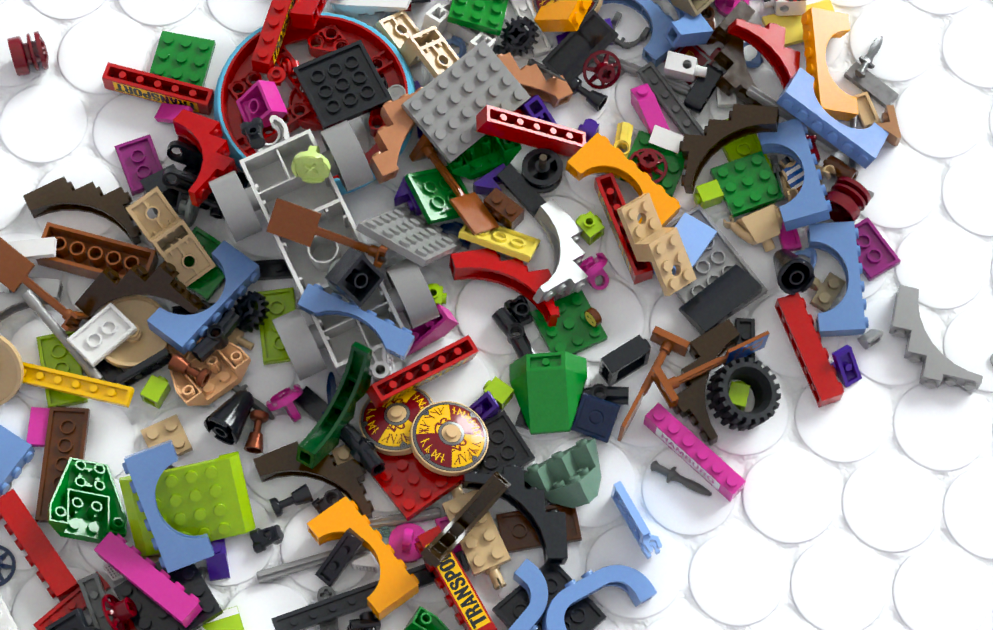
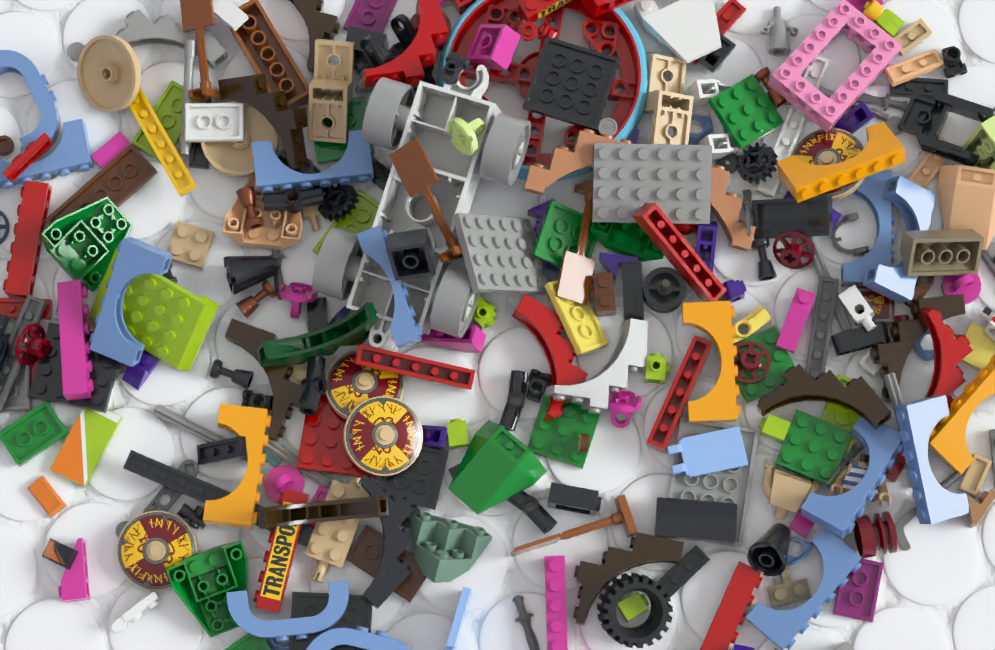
camera: 50 degrees right, 10 degrees up
(145, 368) = (222, 176): black tile -> none
(155, 391) = (215, 200): lime brick -> none
(265, 537) = (187, 385): black plate -> none
(365, 563) = (238, 471): white slope -> none
(595, 417) = (509, 521): dark blue tile -> none
(656, 244) = (682, 433): tan bracket -> none
(666, 138) = (785, 352): white sticker -> none
(667, 386) = (584, 550): dark orange piece -> none
(841, 168) = (900, 505): reddish brown piece -> none

